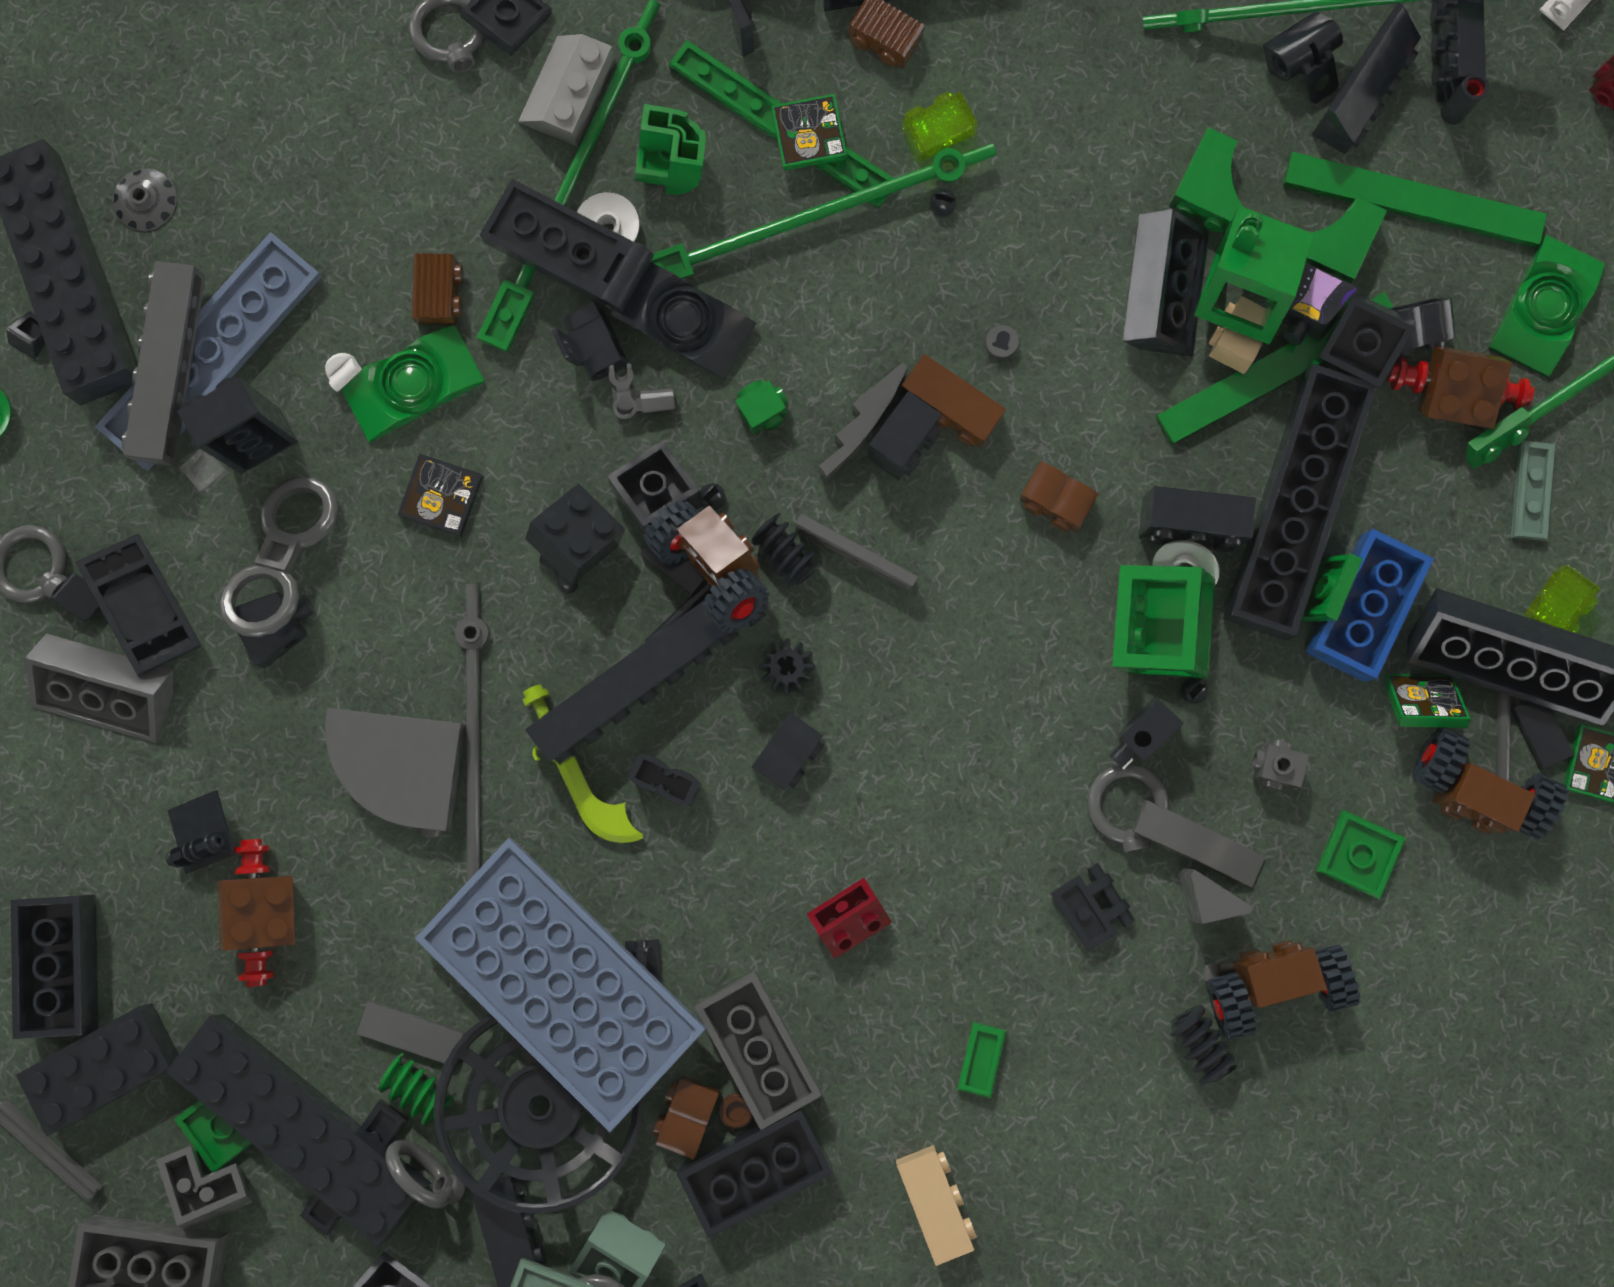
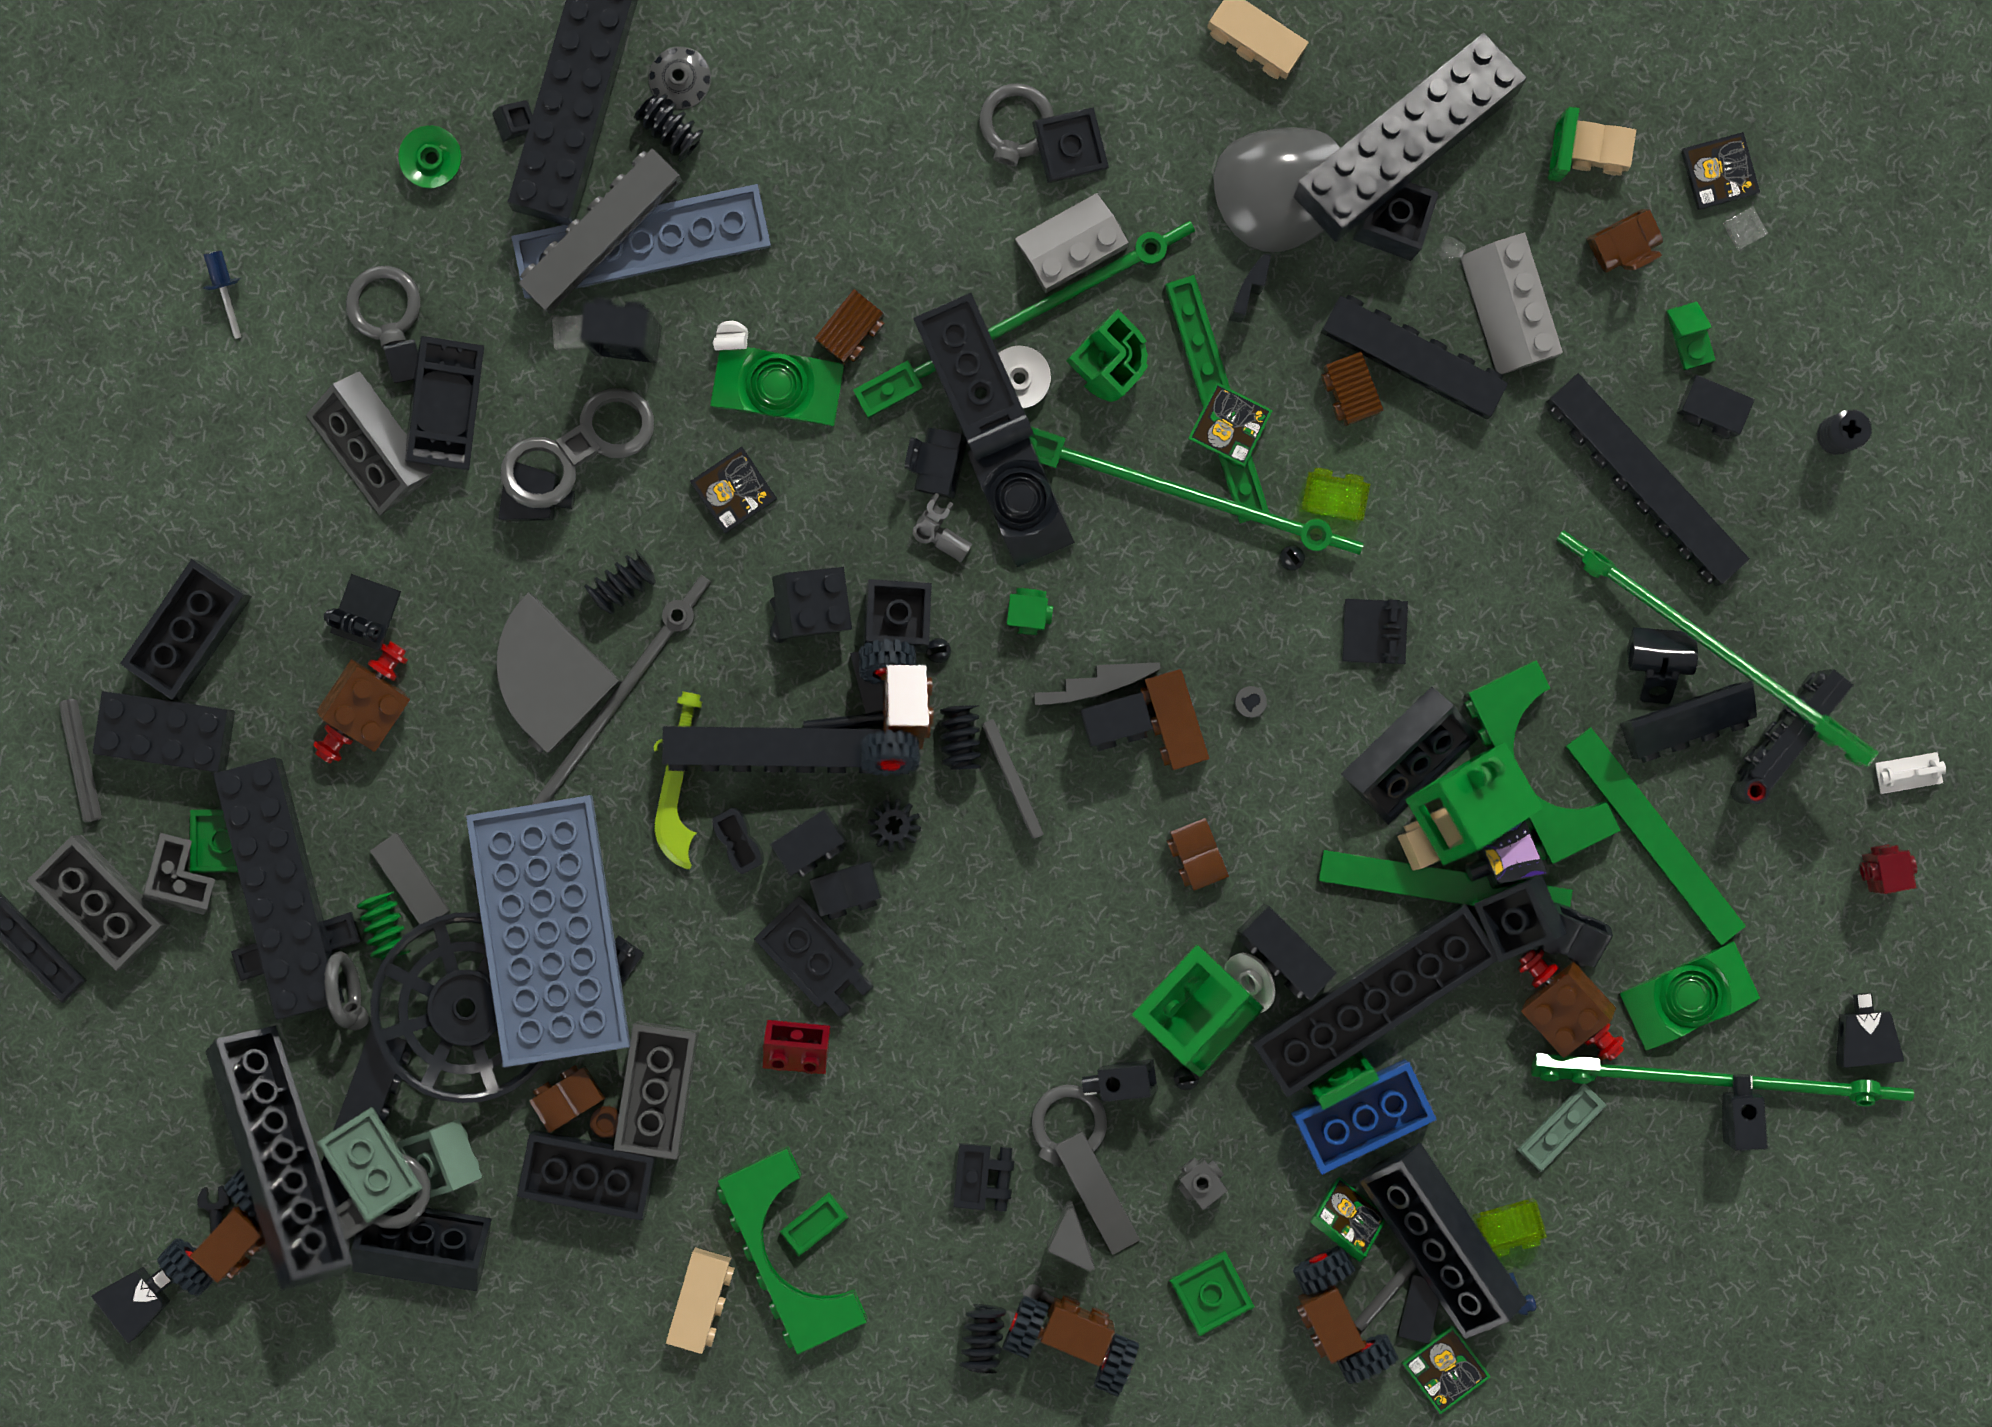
camera: 35 degrees right, 5 degrees up
(161, 241) = (668, 126): none -> black piece
(402, 641) = (621, 583): none -> black piece
(726, 734) = (809, 842): none -> black brick
(803, 830) = (813, 955): none -> black tile
(1037, 1145) = (806, 1316): none -> green arch
(1057, 209) = (1375, 631): none -> black hinge

